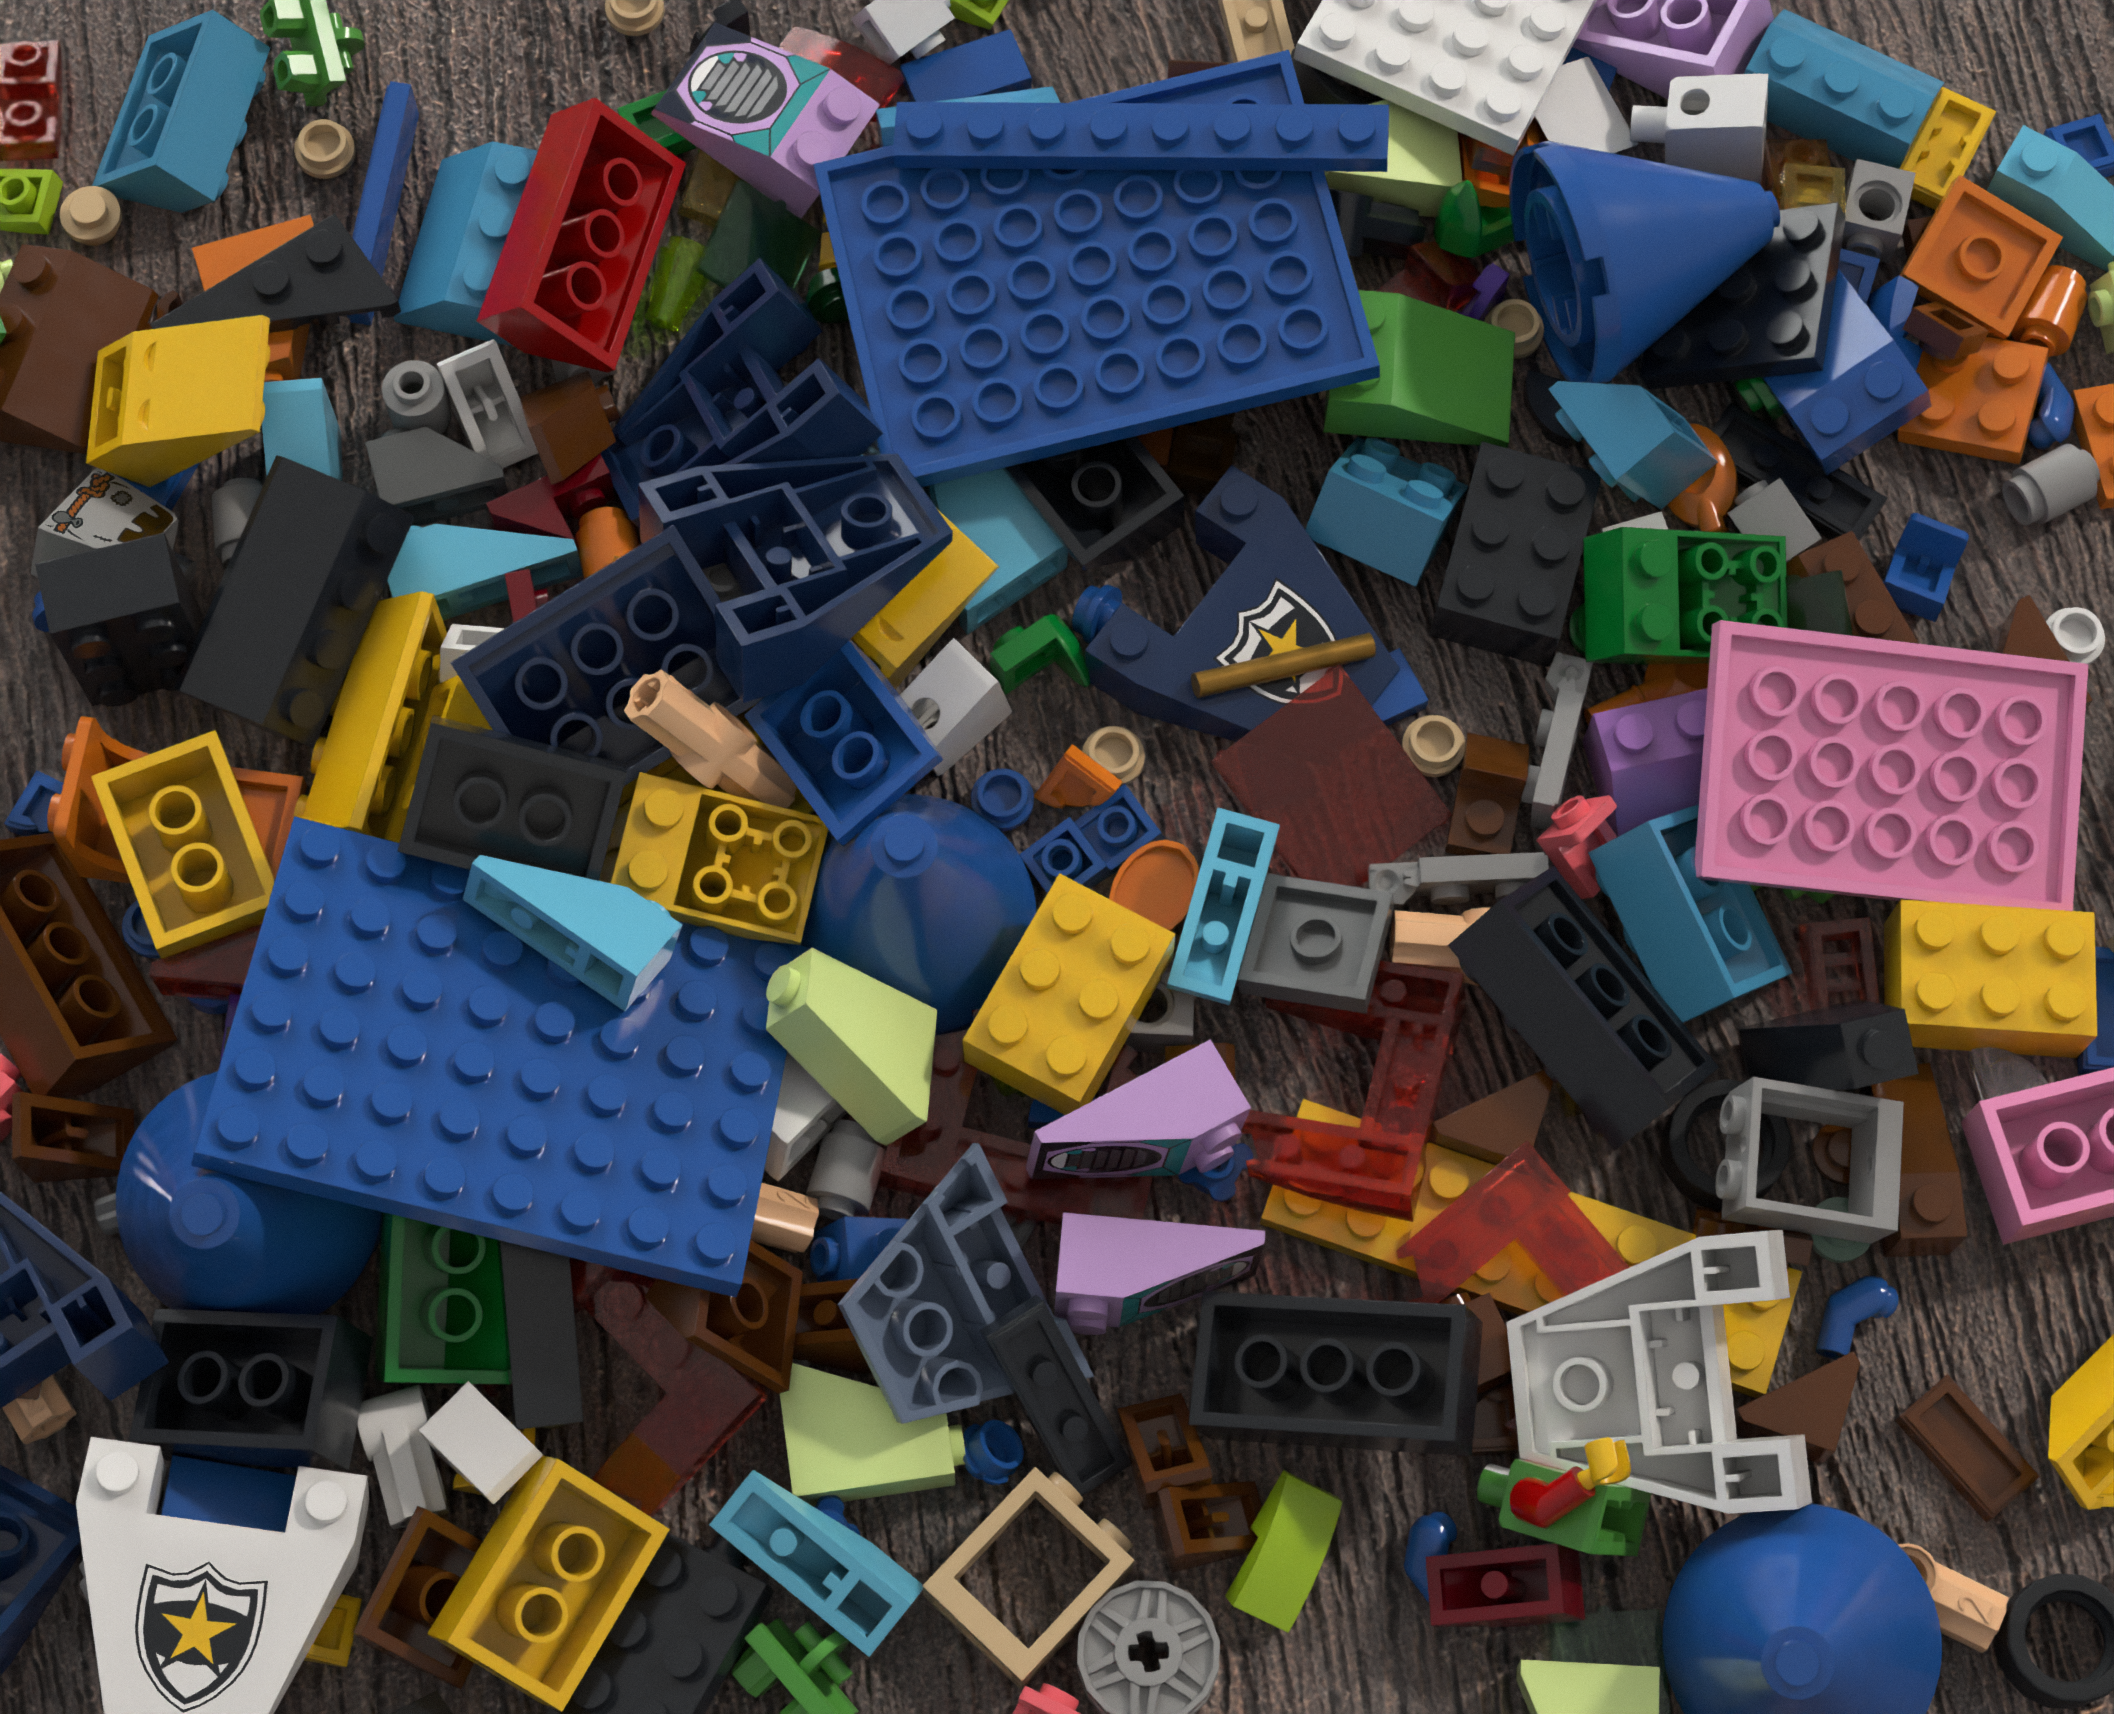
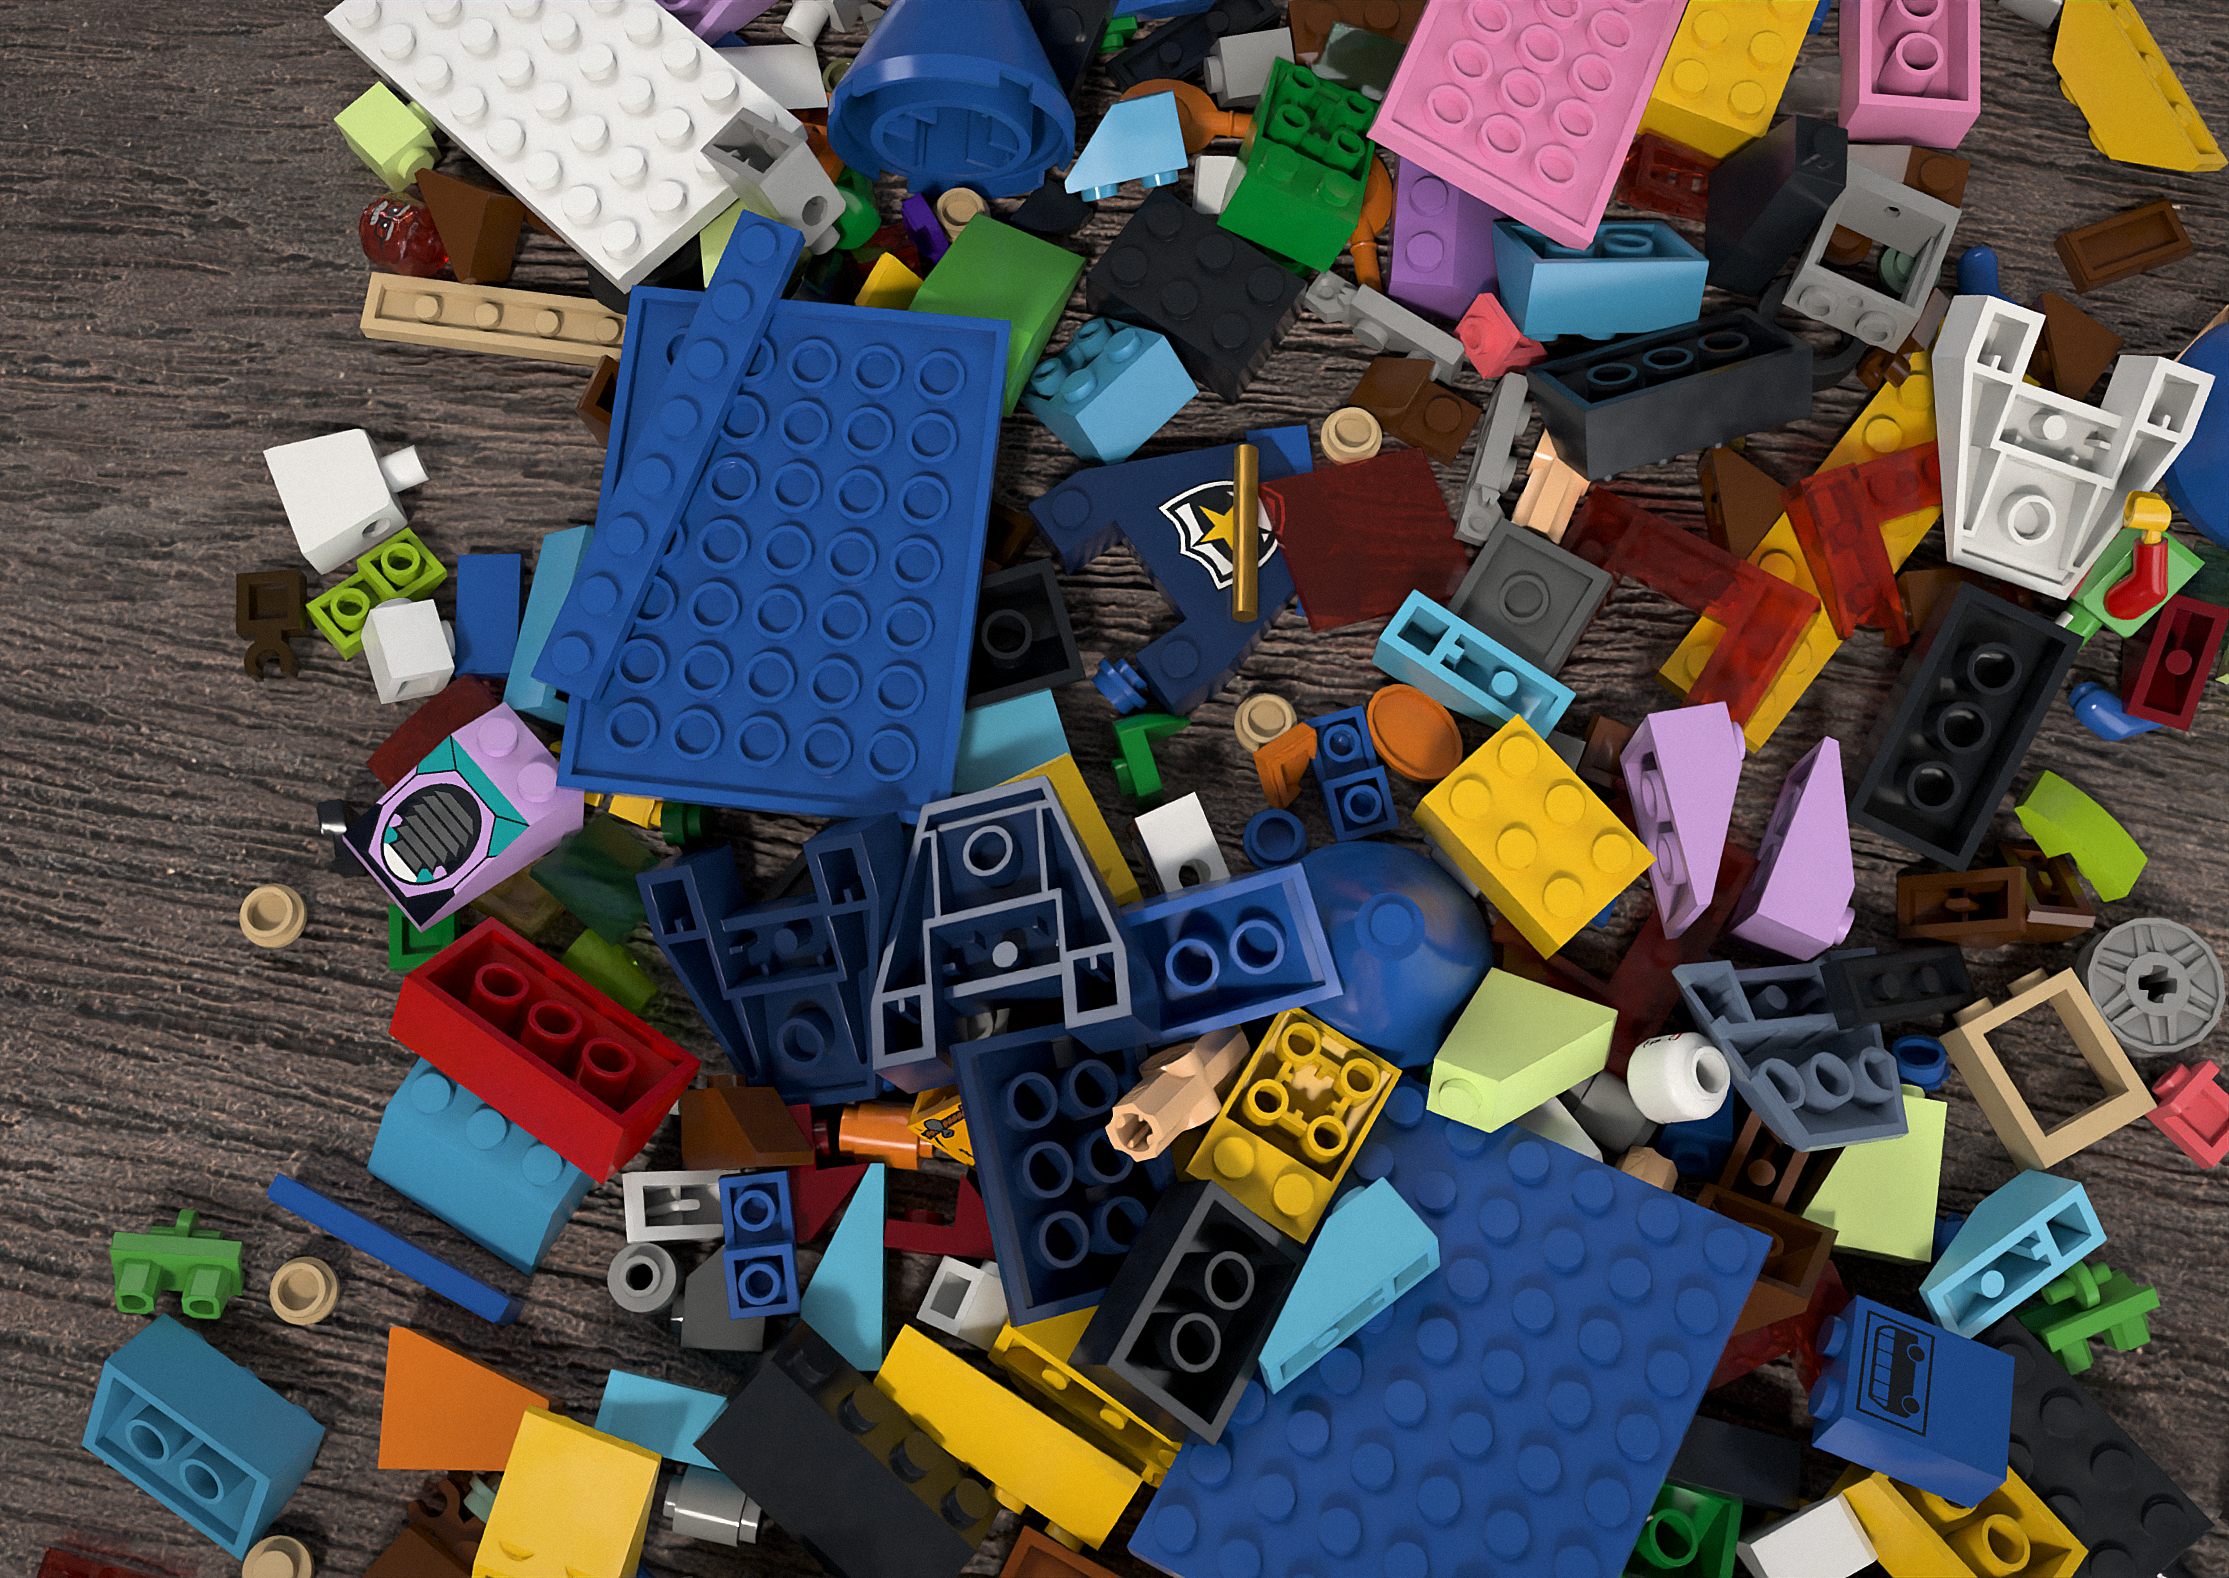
camera: 70 degrees left, 5 degrees up
(296, 284) = (471, 1362): black wing -> none
(469, 473) = (759, 1243): none -> blue slope
(642, 1479) = (1913, 1401): none -> blue brick
(862, 1197) = (1678, 1078): none -> white head
(1392, 272) = (889, 285): none -> yellow slope
(1442, 135) = (791, 189): none -> light grey torso

